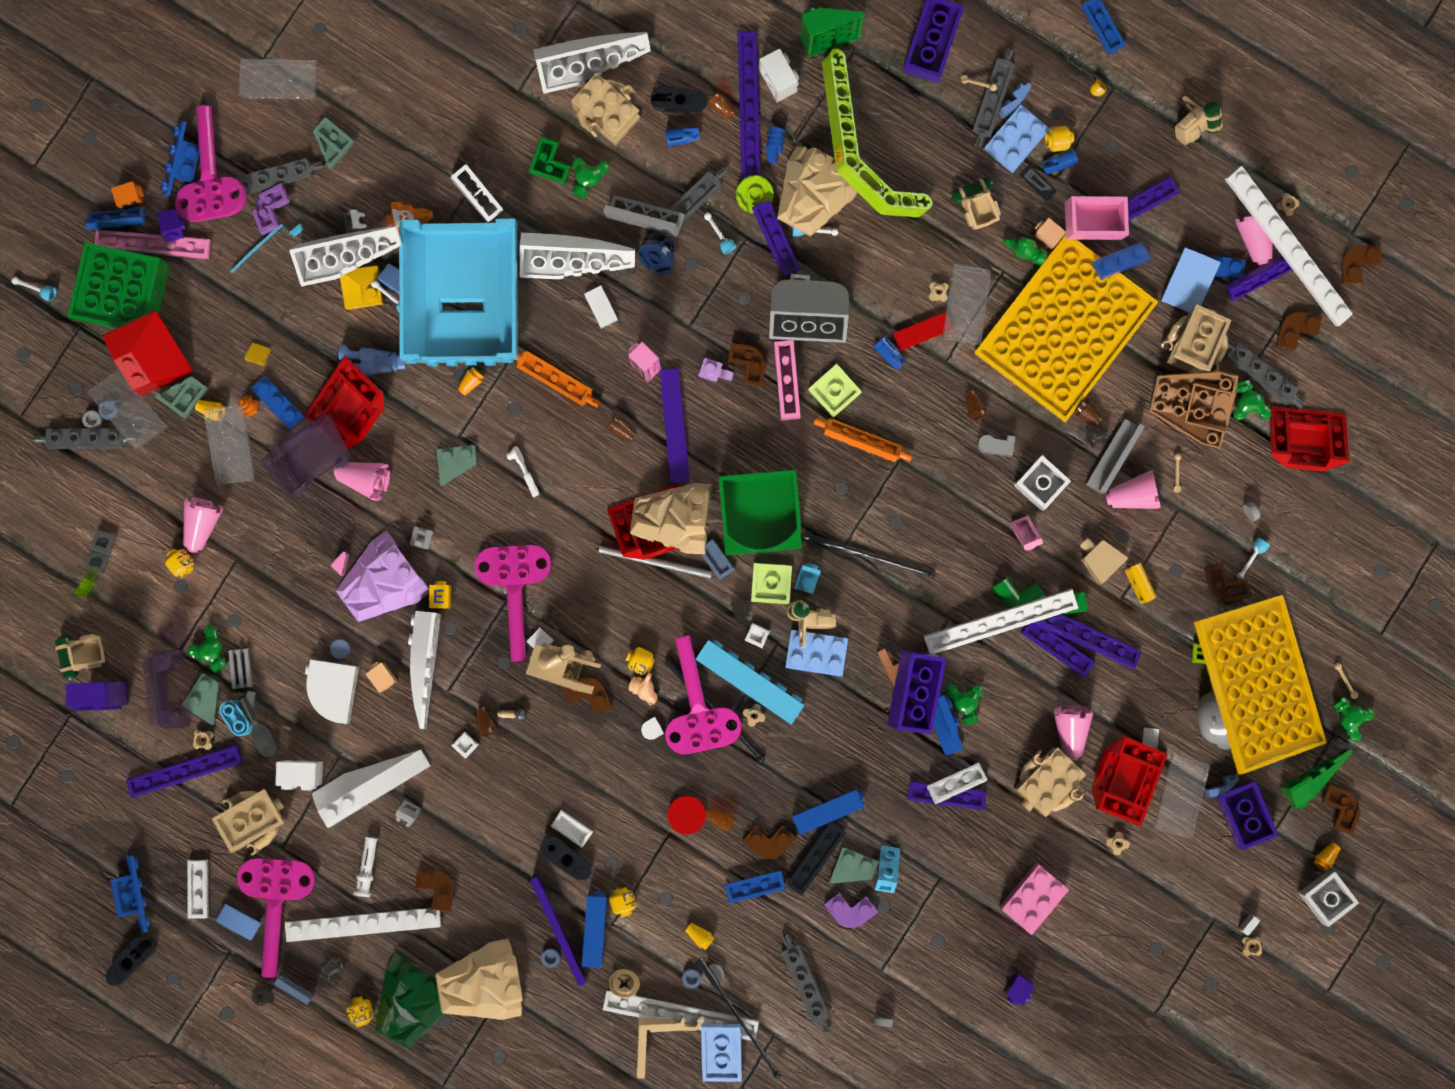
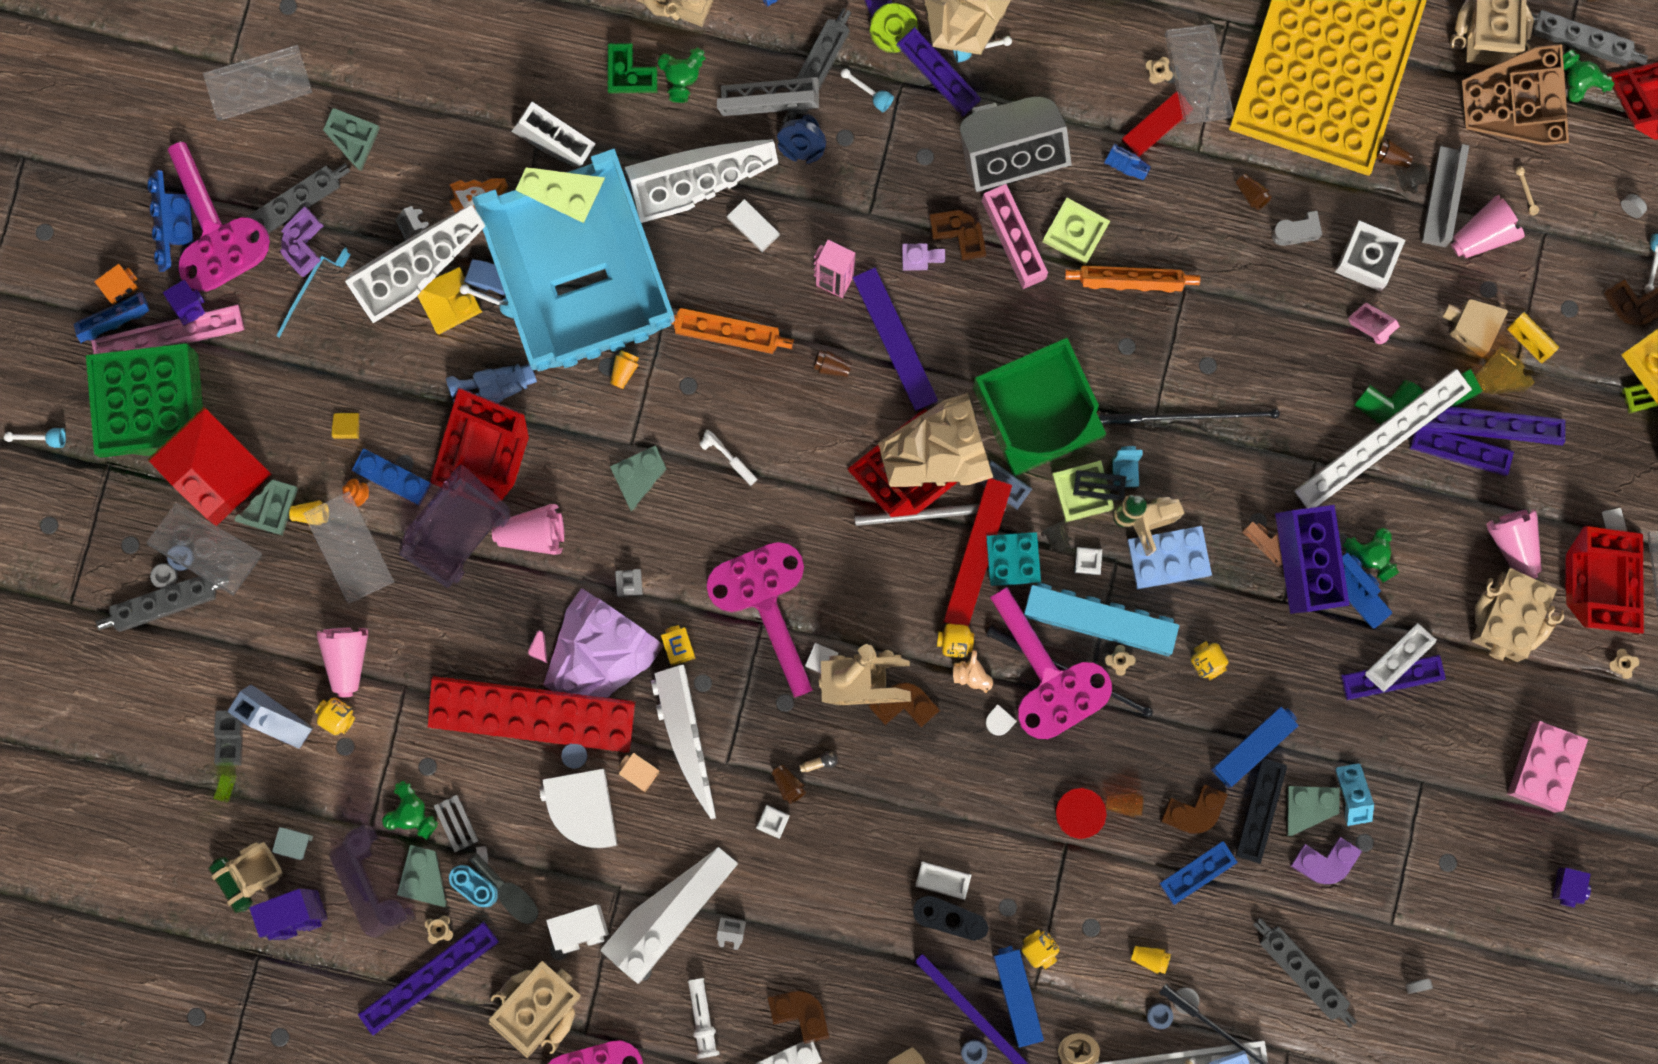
camera: 25 degrees left, 5 degrees down
(118, 642) = (291, 843): none -> light aqua panel
(132, 547) = (269, 717): none -> sand blue slope
(319, 609) = (531, 714): none -> red plate
(468, 236) = (562, 191): none -> yellowish green wing
(678, 602) = (976, 553): none -> red tile
(702, 616) = (1013, 559): none -> teal hinge
(798, 591) = (1102, 476): none -> black tile
(817, 738) = (1209, 660): none -> yellow head
(1106, 603) = (1503, 374): none -> clear yellow slope

